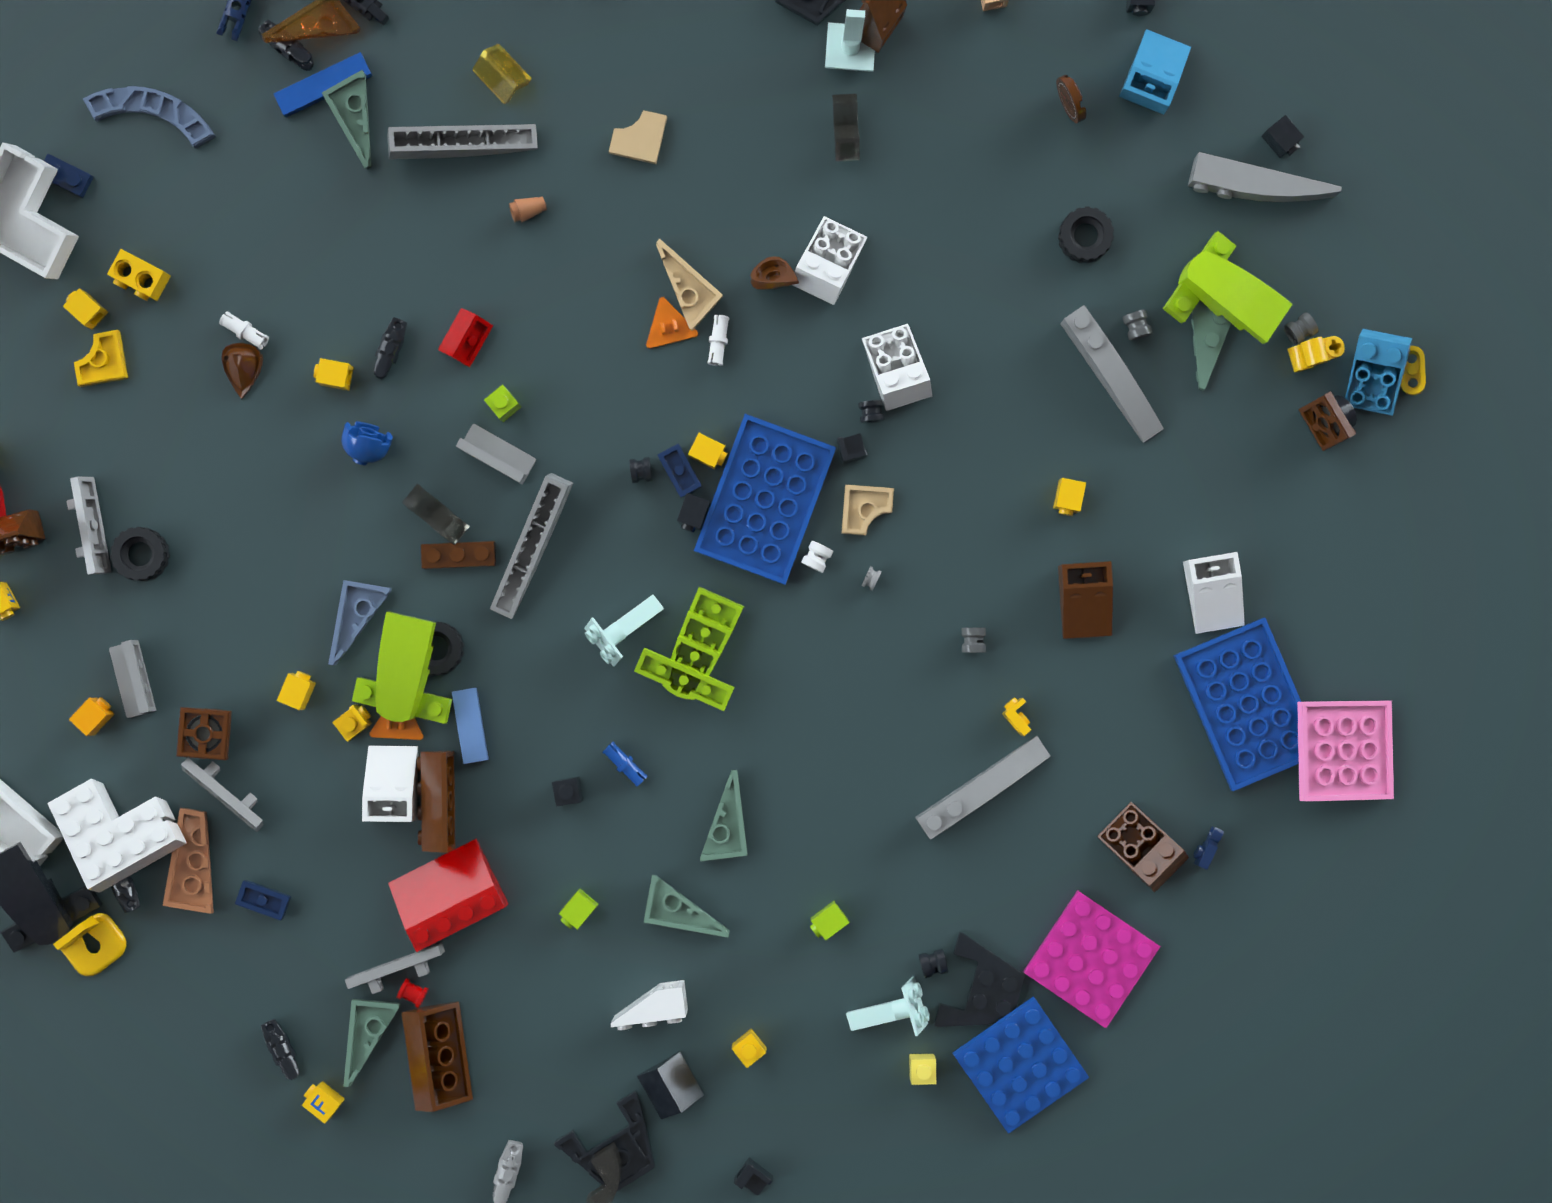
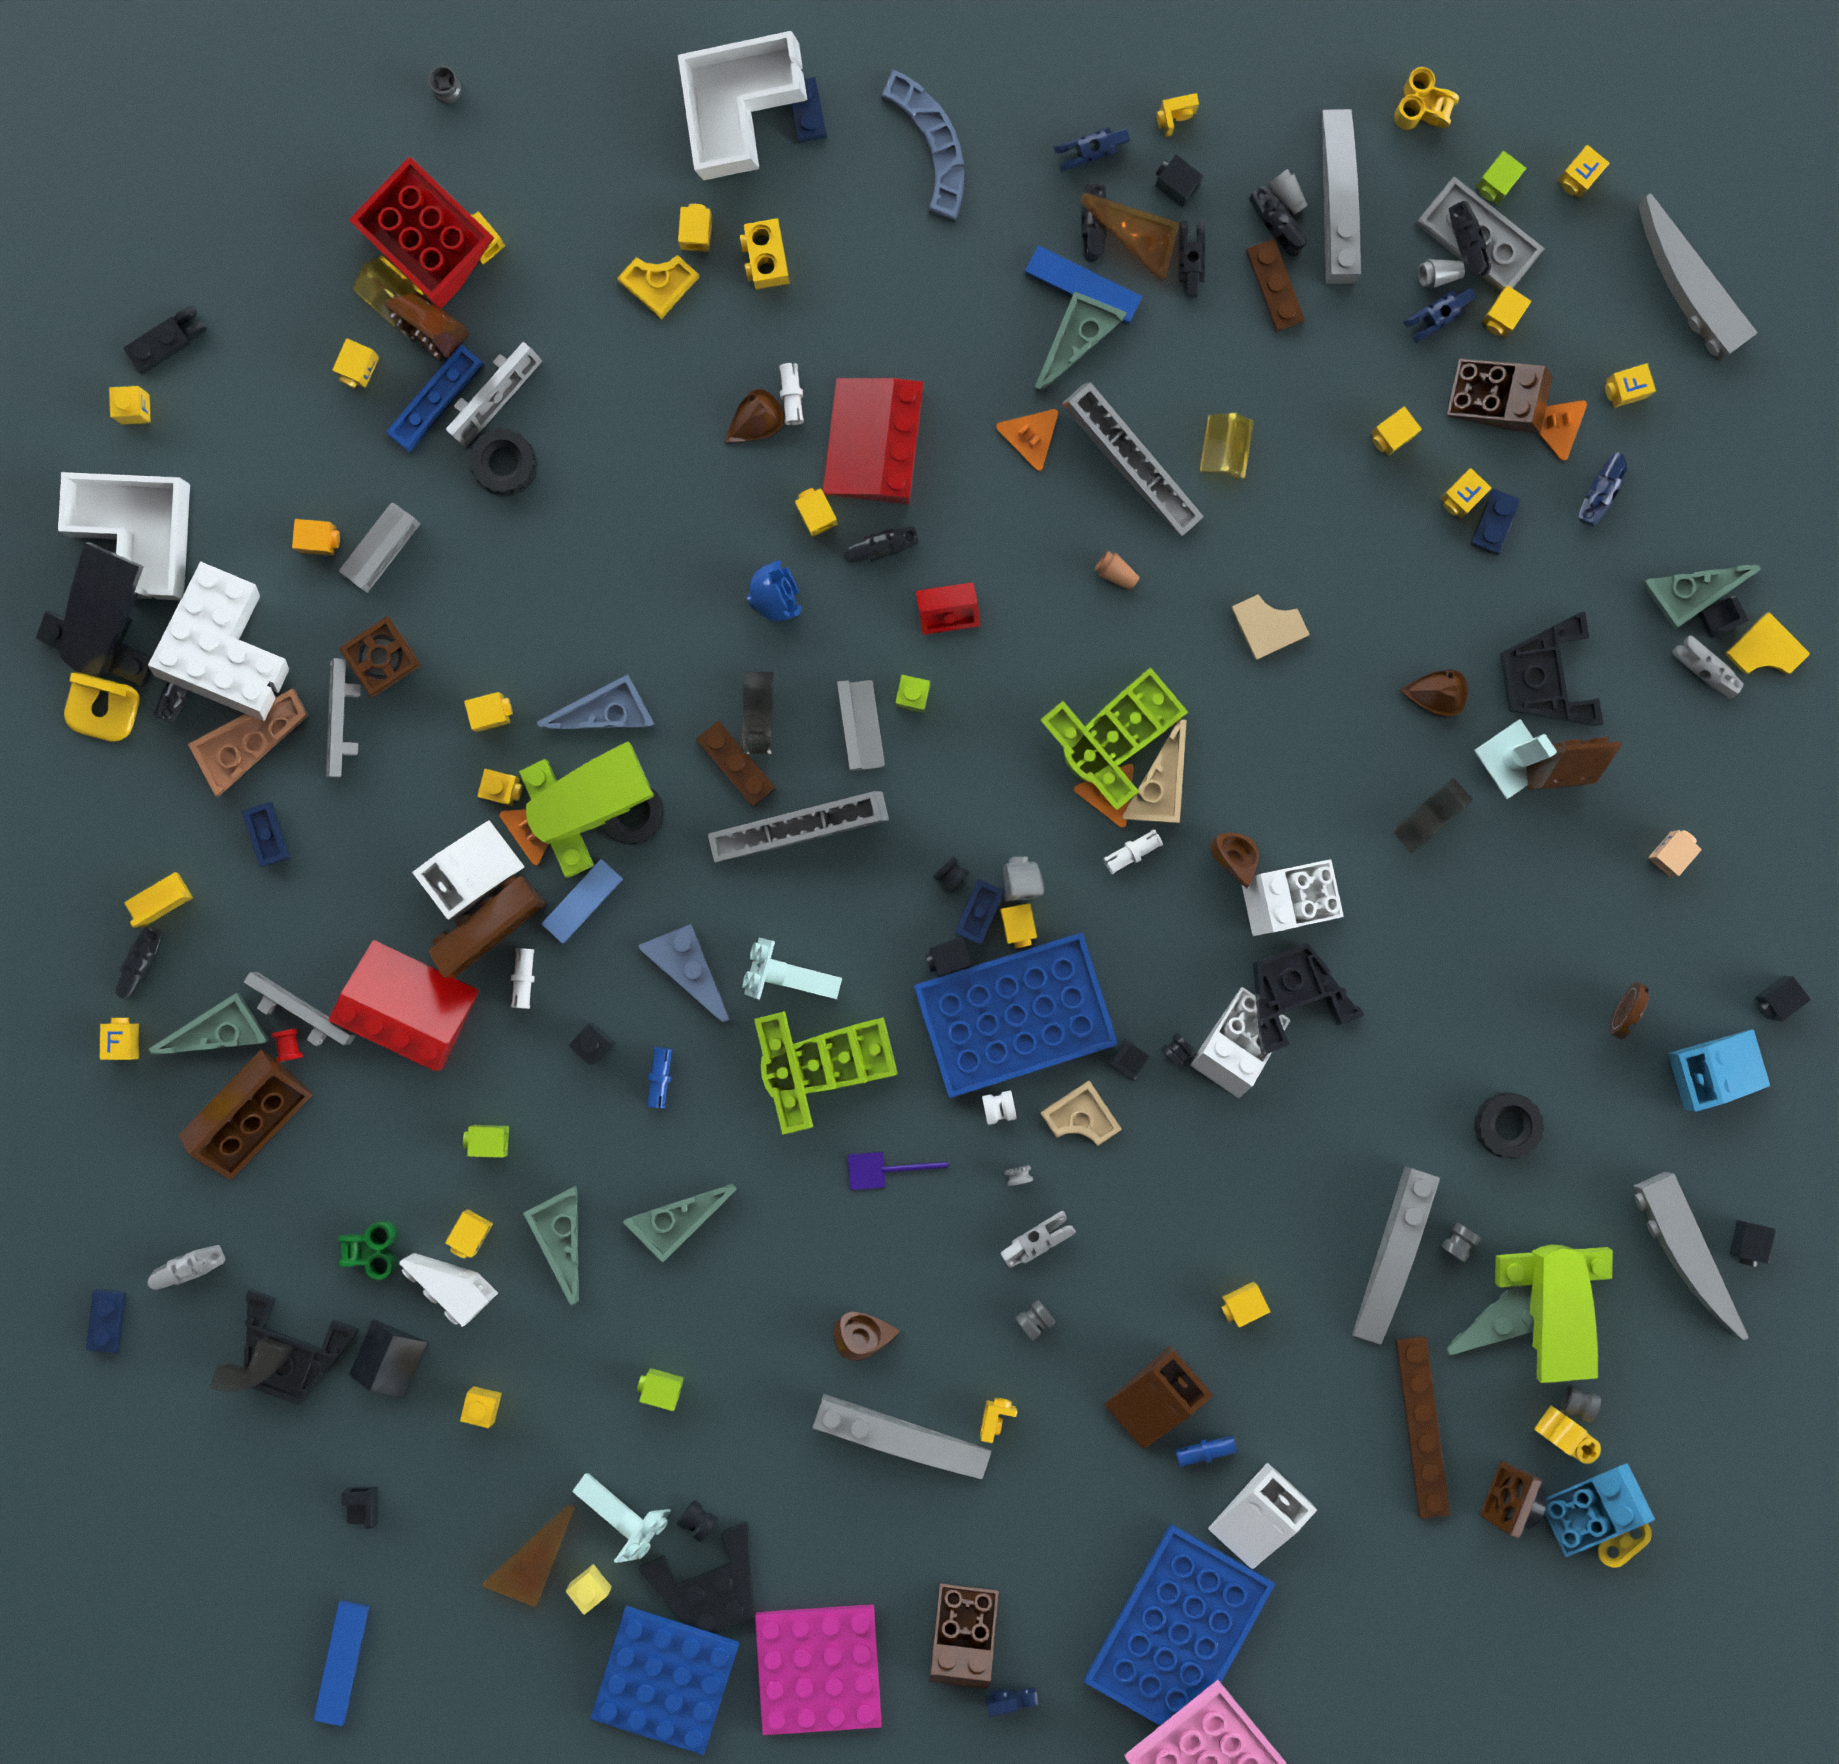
camera: 45 degrees right, 0 degrees up
(62, 566) = (435, 398): none -> blue tile
(250, 1005) = (157, 900): none -> yellow panel
(316, 299) = (873, 439): none -> red slope
(394, 196) = (1030, 435): none -> orange piece
(489, 804) = (522, 978): none -> white pin
(562, 689) = (685, 962): none -> sand blue wing
(587, 1044) = (365, 1249): none -> green piece
(629, 969) = (468, 1234): none -> yellow brick
(632, 292) = (1115, 734): none -> lime slope
(679, 424) = (1021, 879): none -> light grey slope
(770, 61) = (1439, 692): none -> reddish brown piece
(791, 673) = (868, 1170): none -> dark purple piece
(879, 1098) = (528, 1569): none -> clear orange wing
(883, 302) = (1290, 982): none -> black wing
(896, 760) = (863, 1336): none -> reddish brown piece
(923, 599) = (1037, 1240): none -> light grey hinge
(1144, 595) = (1206, 1451): none -> blue pin
(1237, 443) = (1422, 1427): none -> reddish brown plate

